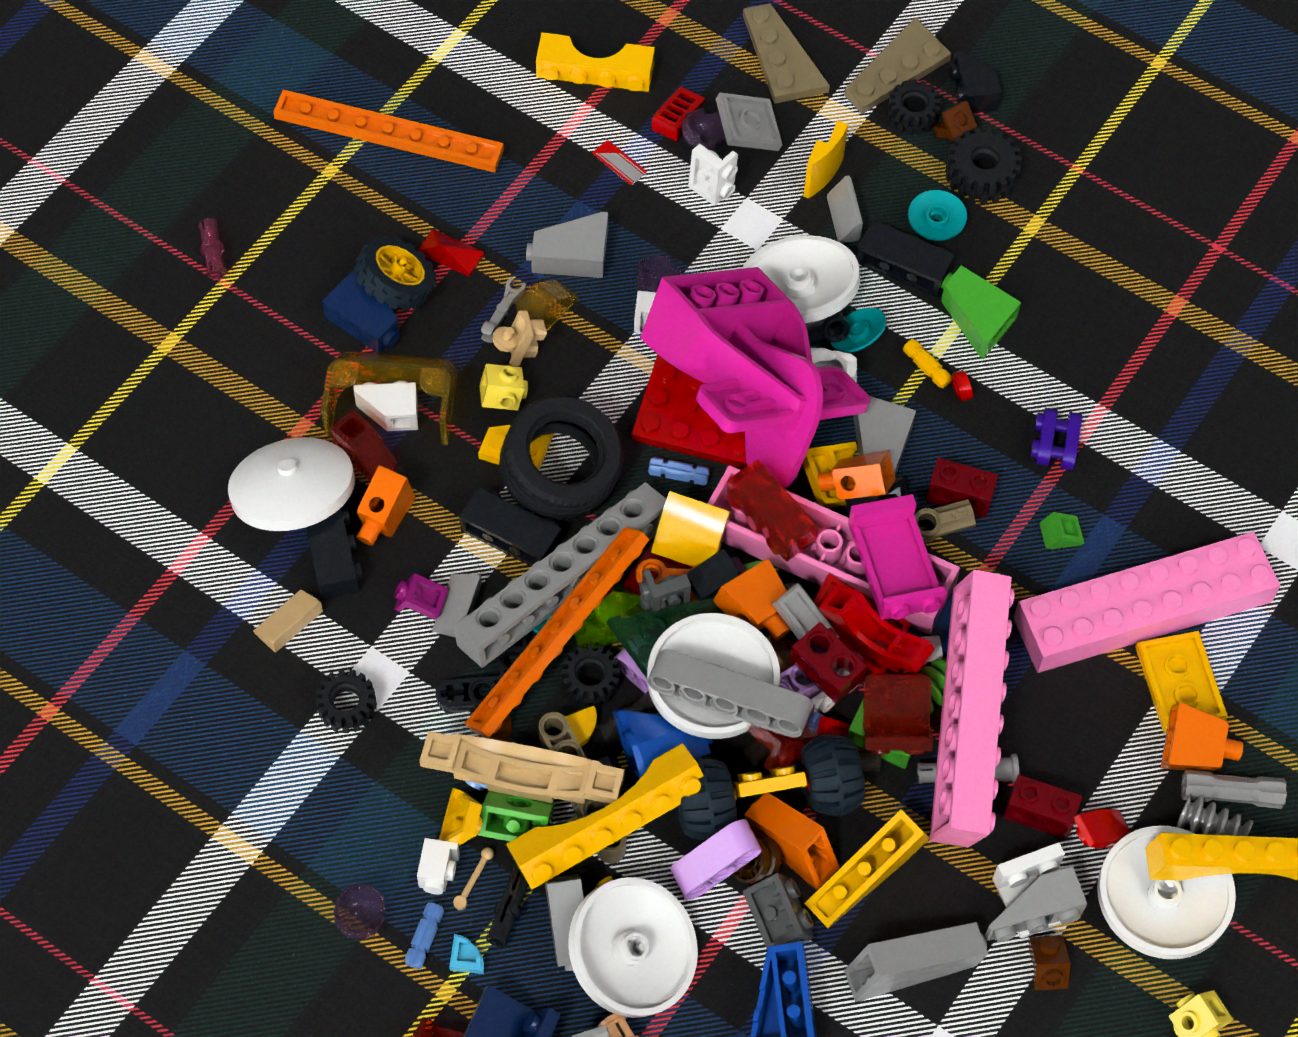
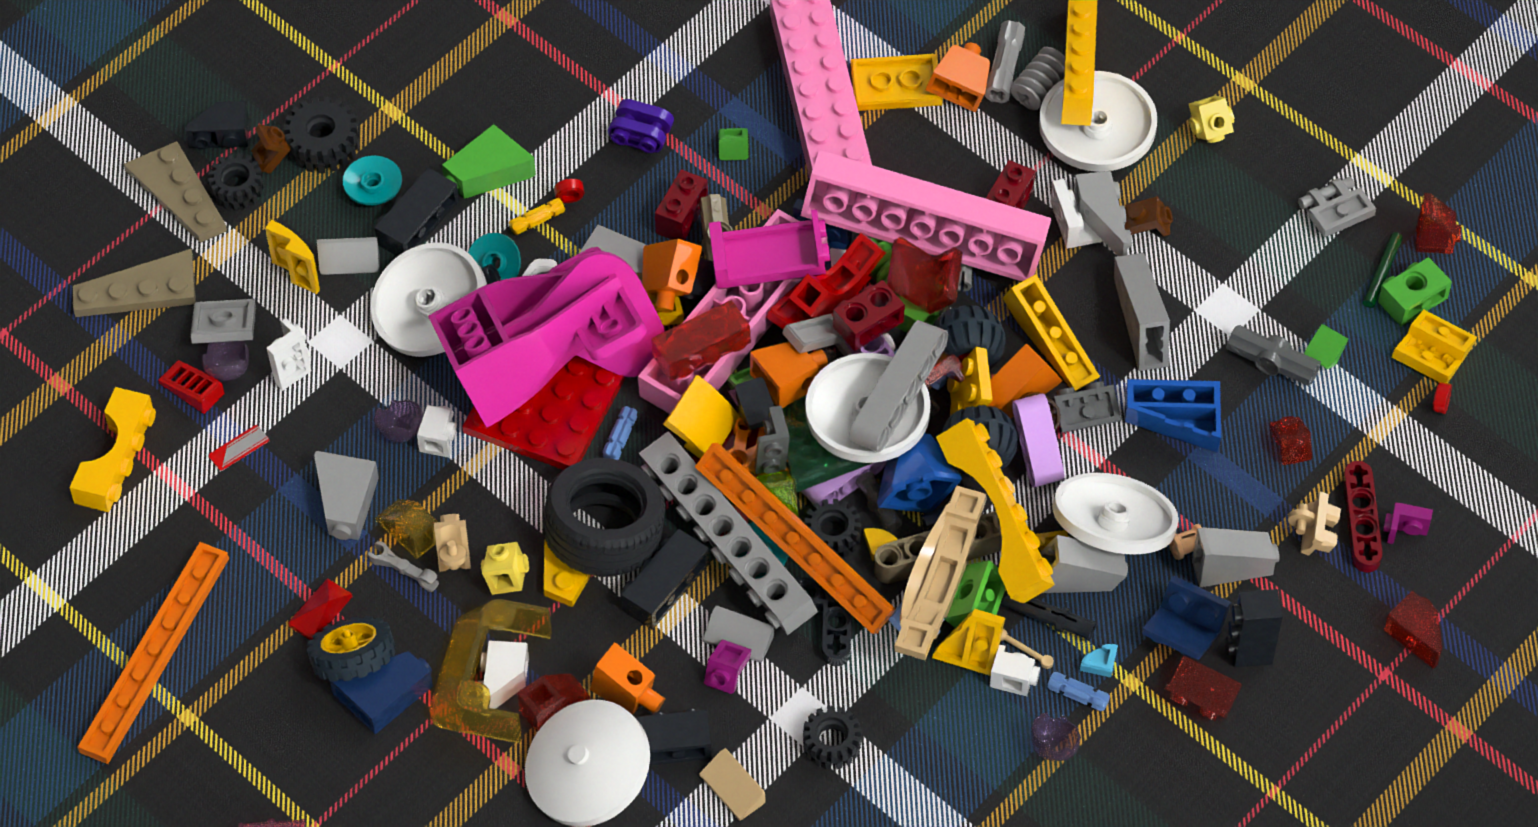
camera: 80 degrees left, 5 degrees down
(1101, 827) = (1037, 155): red slope -> none

